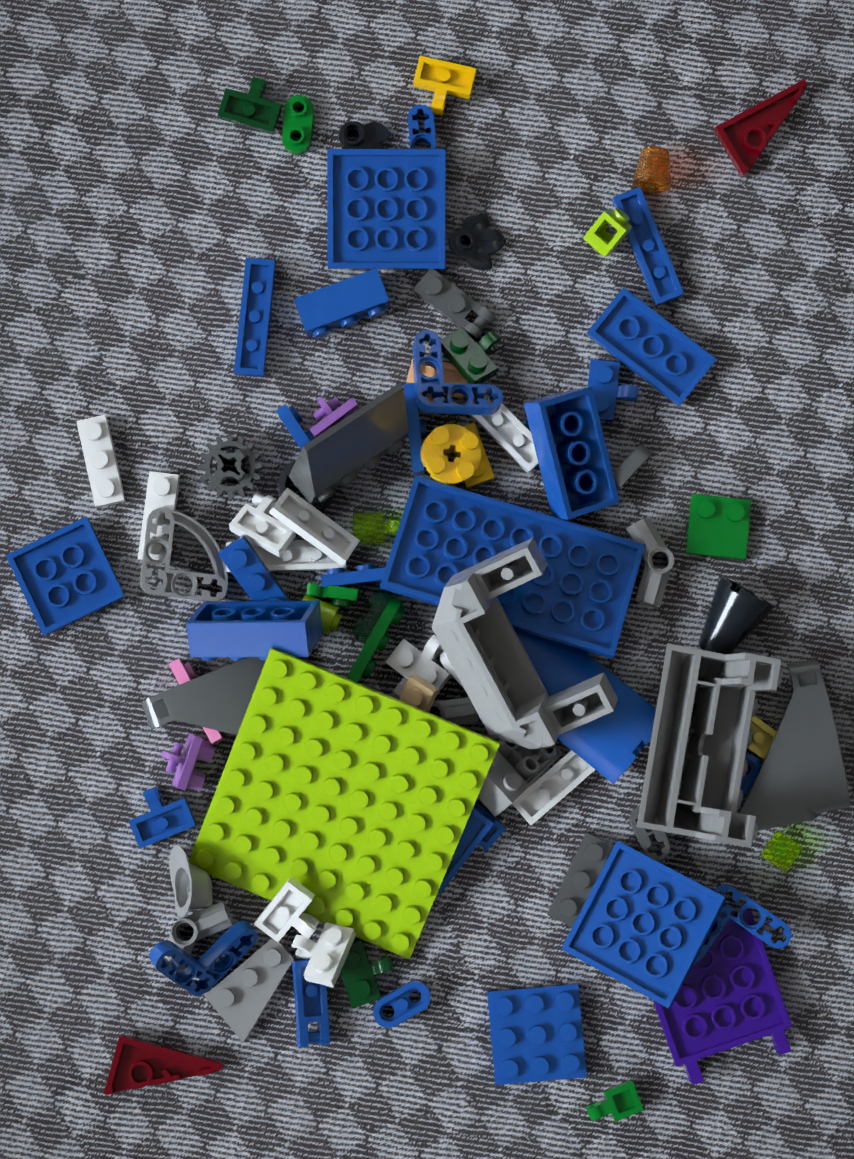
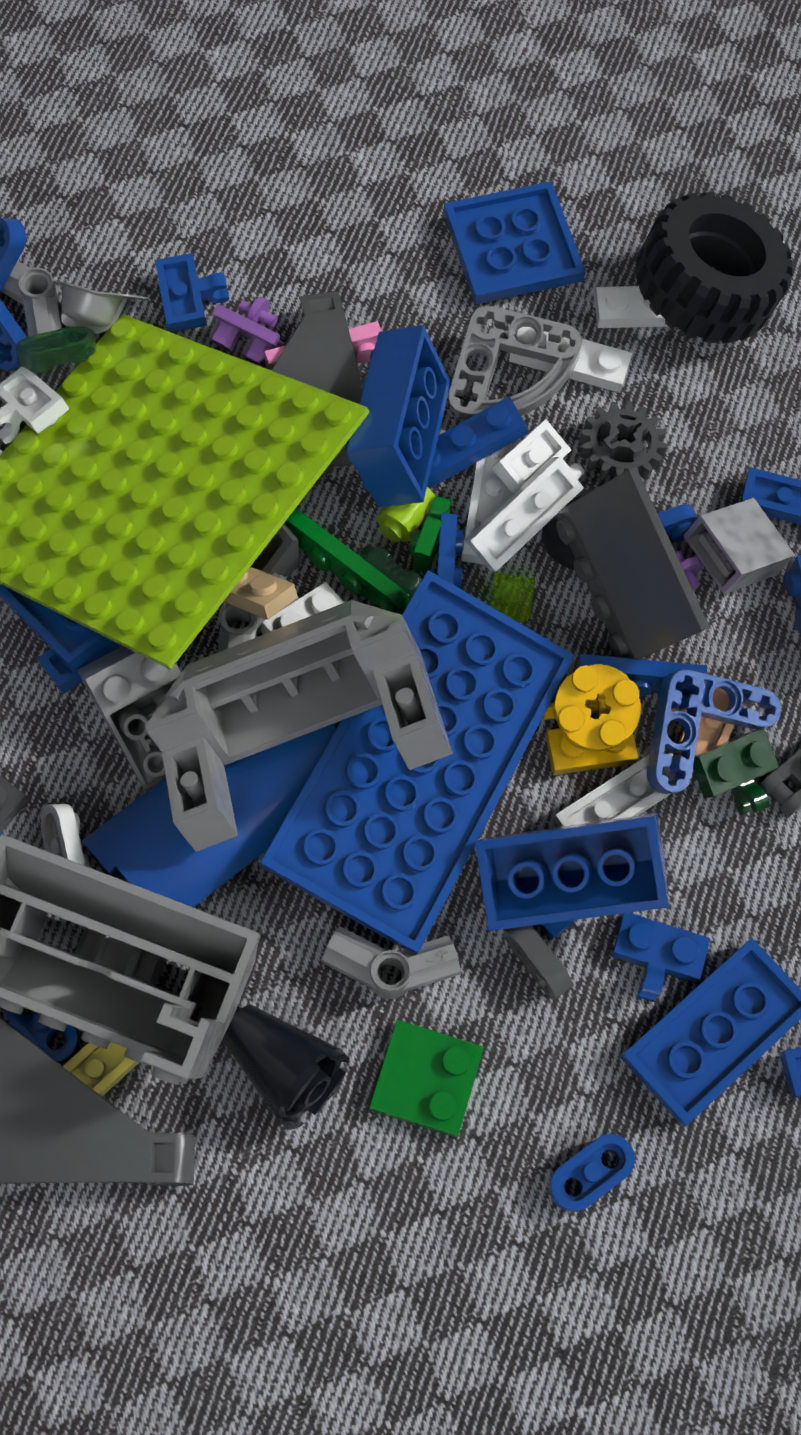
camera: 90 degrees right, 15 degrees down
(53, 392) = (733, 240): none -> black tyre
(238, 902) = (55, 348): none -> clear green plate
(302, 372) = (738, 545): none -> flat silver piece
(552, 787) = (99, 759): white plate -> none
(617, 796) = (61, 833): none -> white plate
(757, 412) = (591, 1174): none -> blue plate

